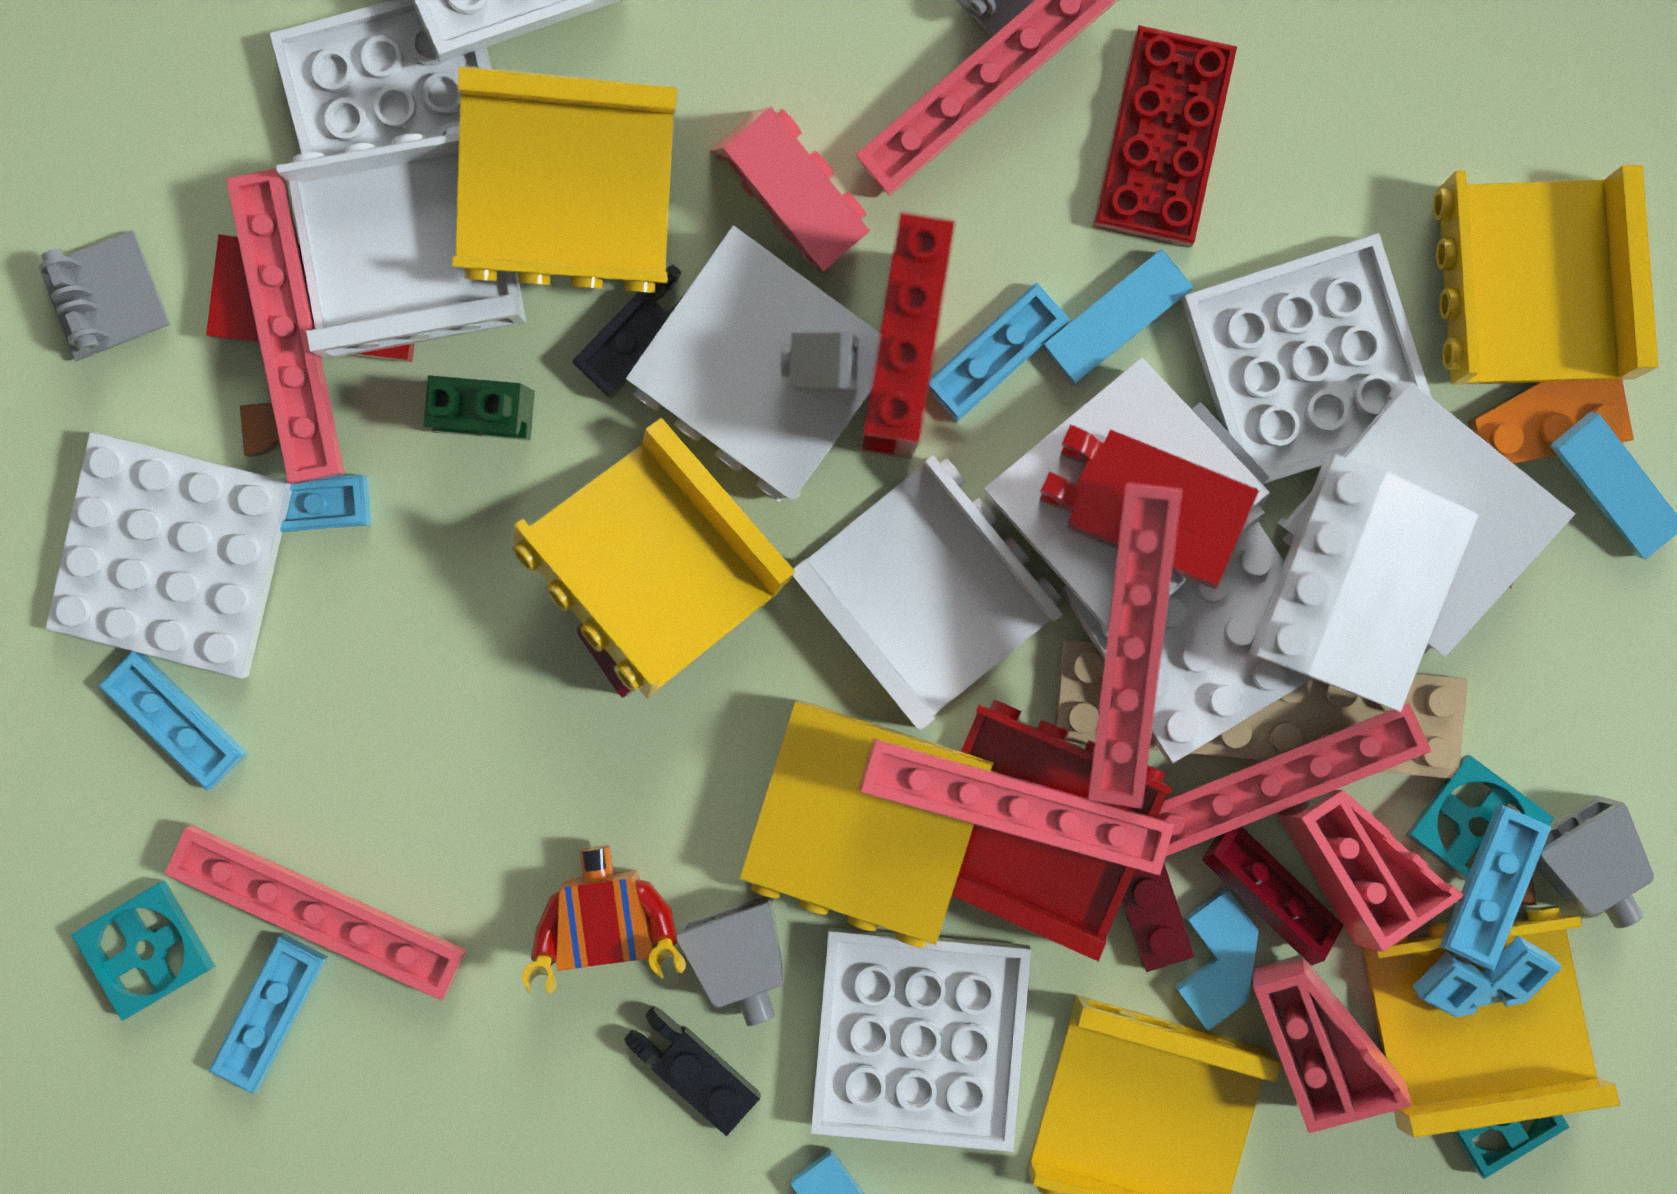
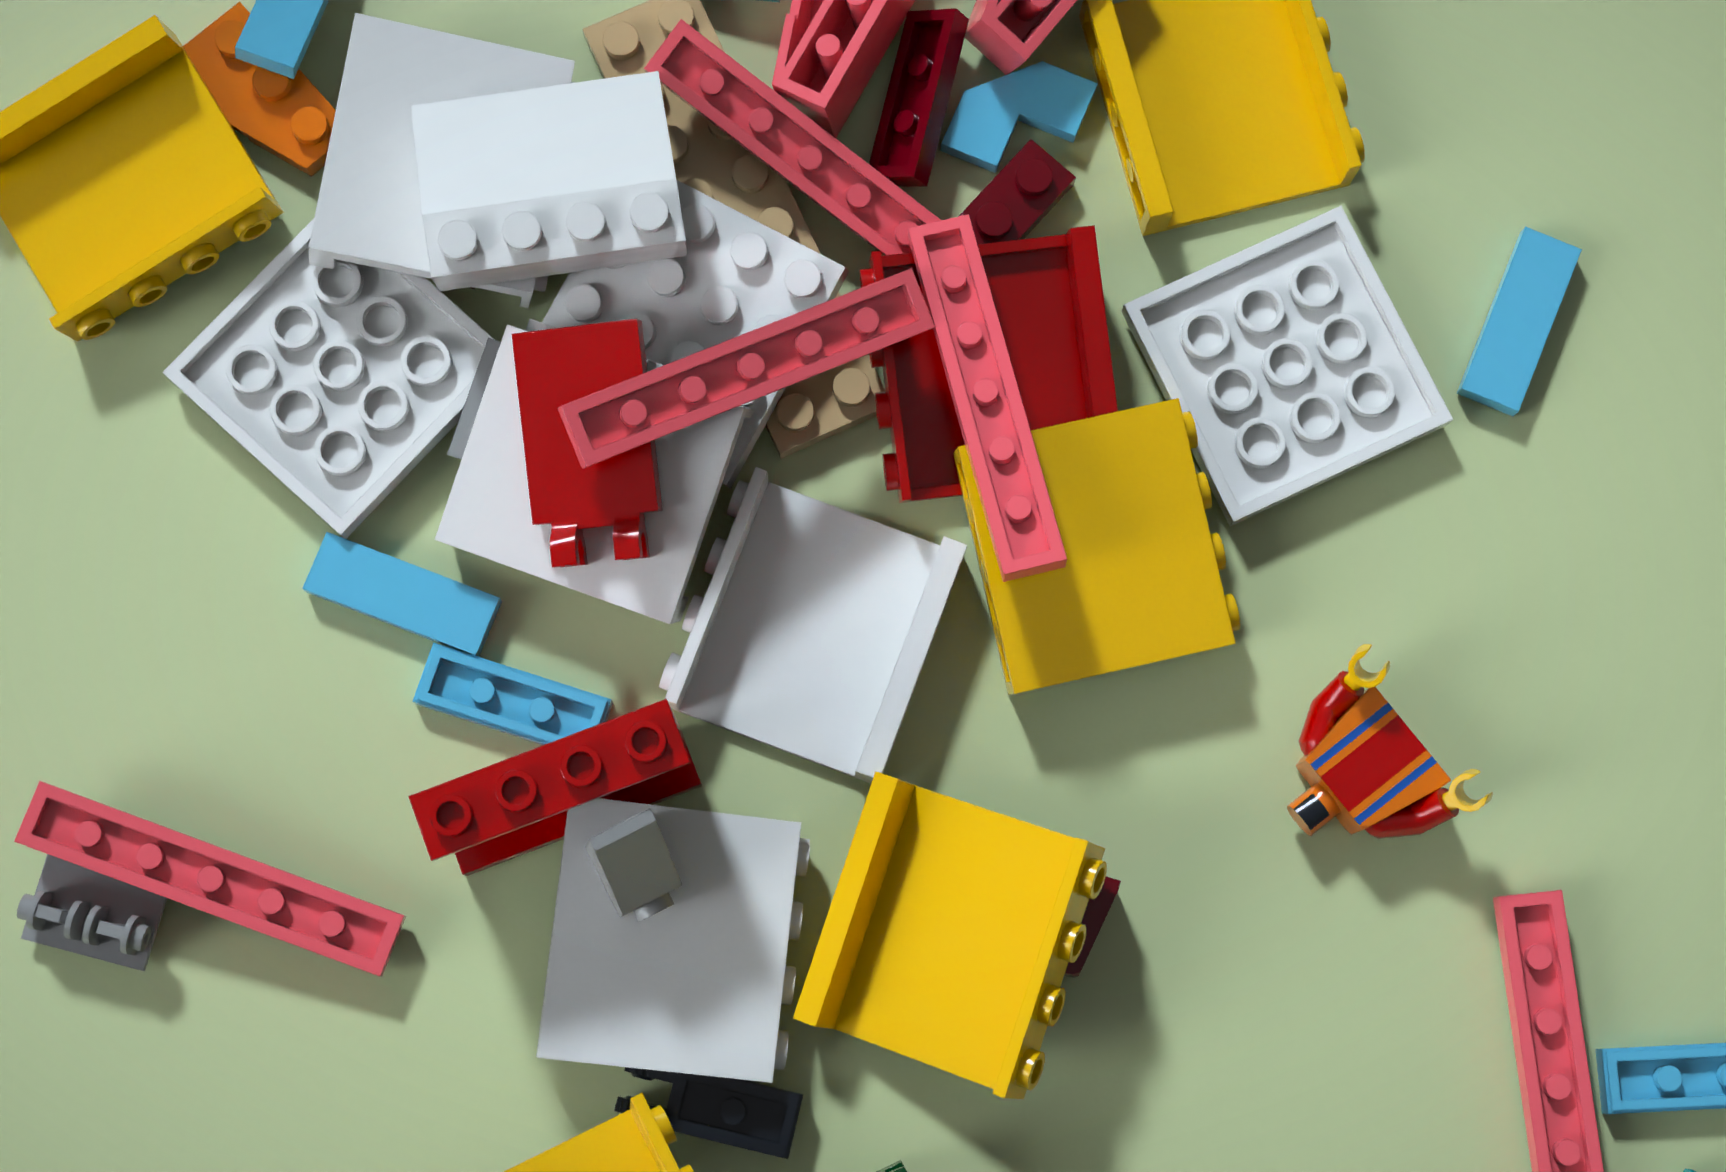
camera: 130 degrees left, 10 degrees down
(695, 1072) = (1467, 576): black hinge -> none
(737, 956) = (1318, 602): light grey torso -> none
(793, 186) = (454, 1026): coral wedge -> none
(1164, 136) = (176, 656): red tile -> none

